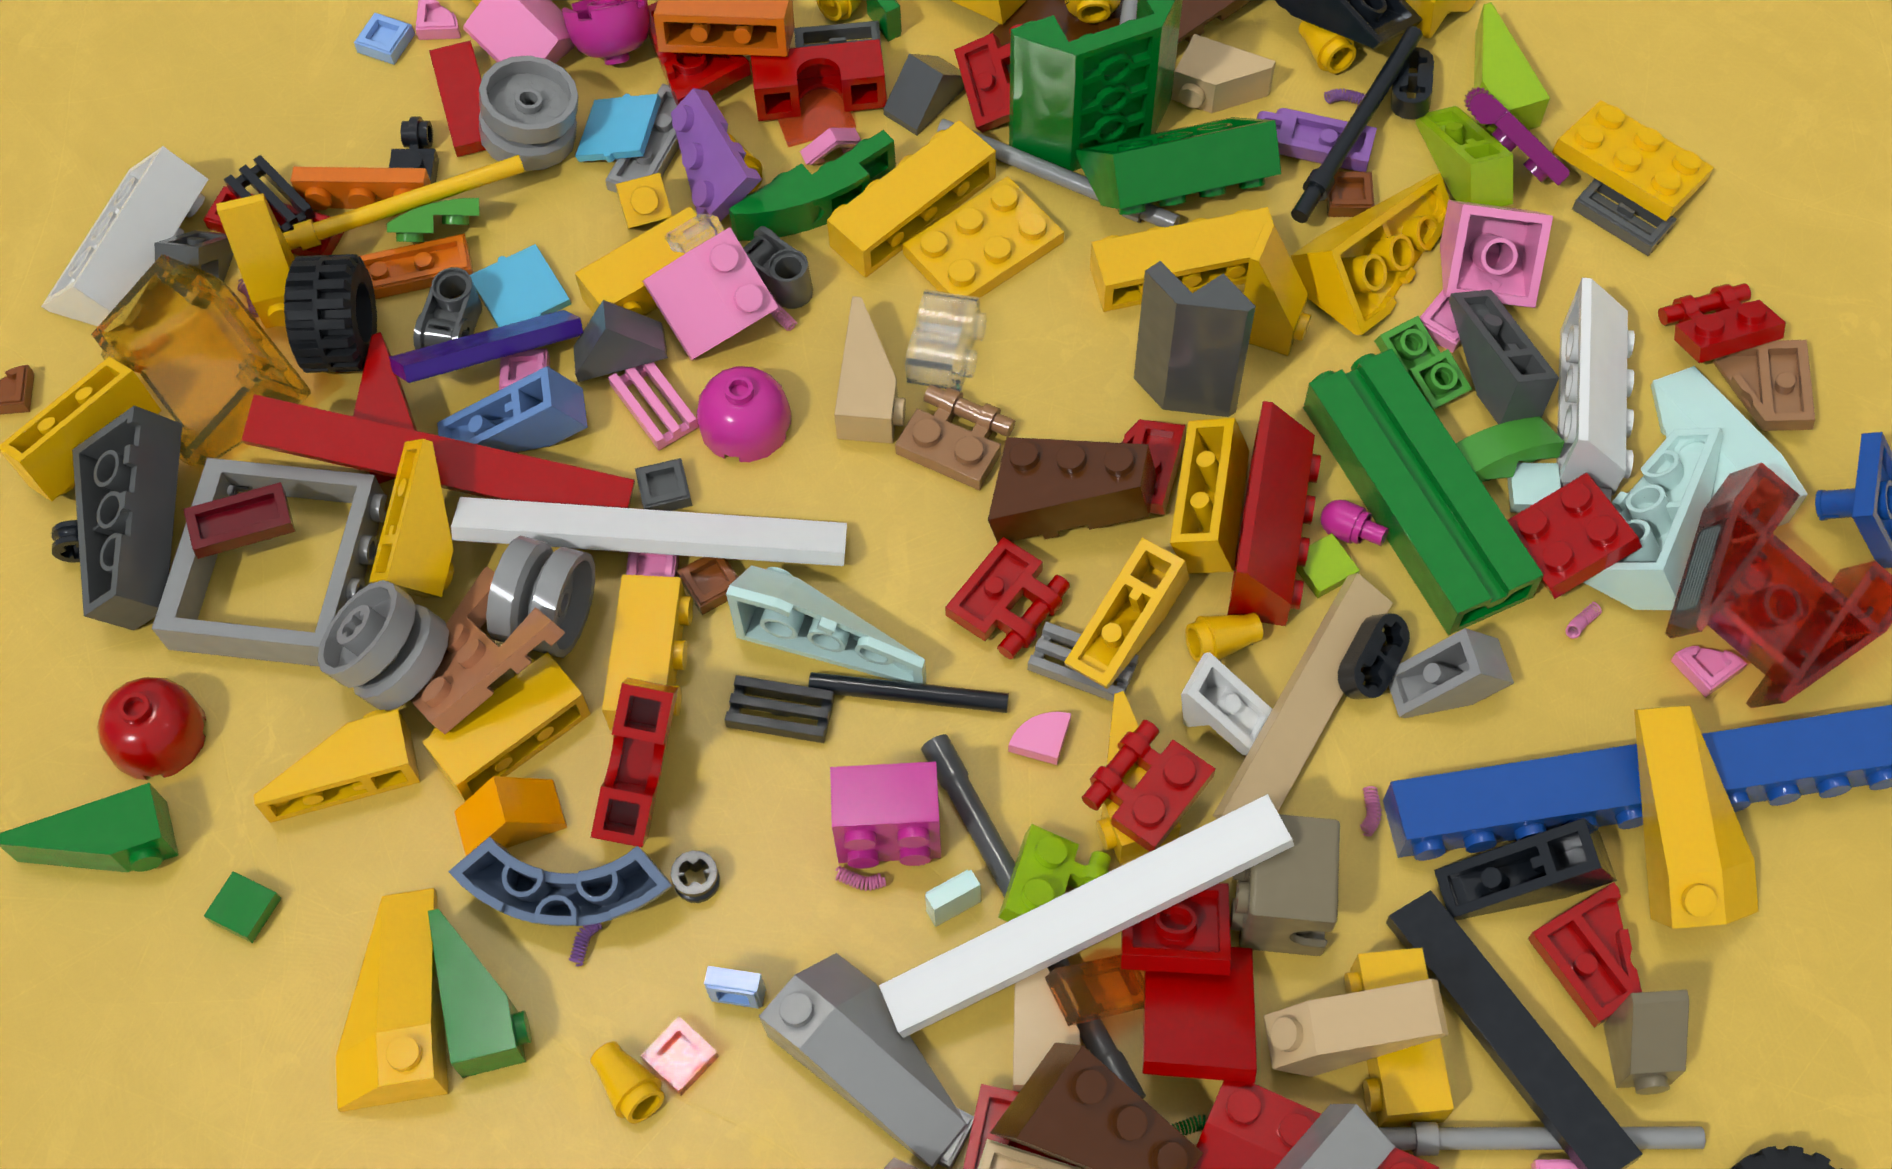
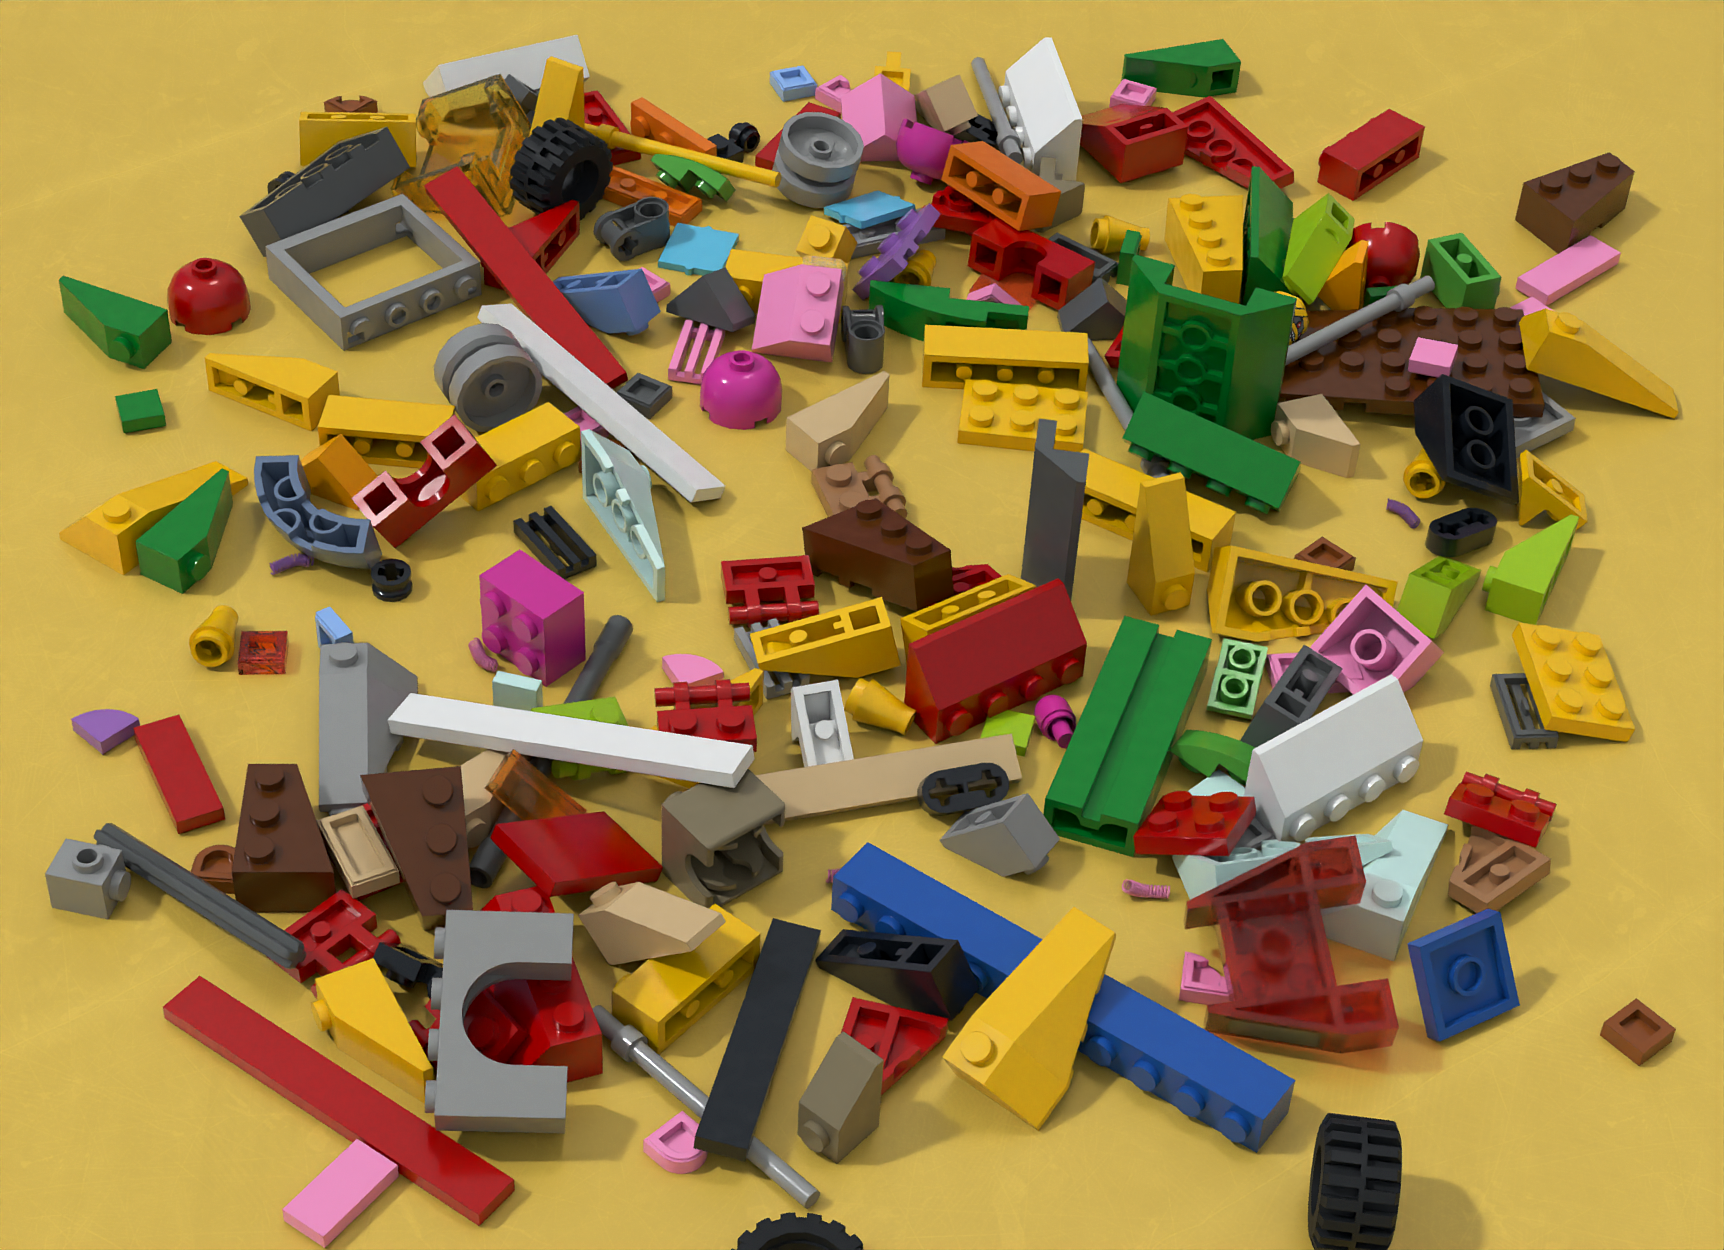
camera: 40 degrees right, 20 degrees down
(239, 520) = (377, 229): dark red tile -> none
(263, 168) = (613, 94): black tile -> none
(383, 645) = (369, 334): light grey wheel -> none
(416, 533) = (459, 300): yellow slope -> none
(476, 660) = (405, 374): nougat wing -> none
(486, 346) = (627, 247): dark purple tile -> none
(782, 317) = (838, 363): bright pink leg -> none
(911, 692) = (645, 595): black bar -> none
(944, 340) = (918, 439): clear brick -> none
(1183, 937) = (618, 806): red plate -> none
(1313, 136) = (1341, 515): medium lavender hinge -> none
(1322, 180) = (1299, 528): black bar -> none
(1513, 133) = (1484, 596): magenta hinge -> none

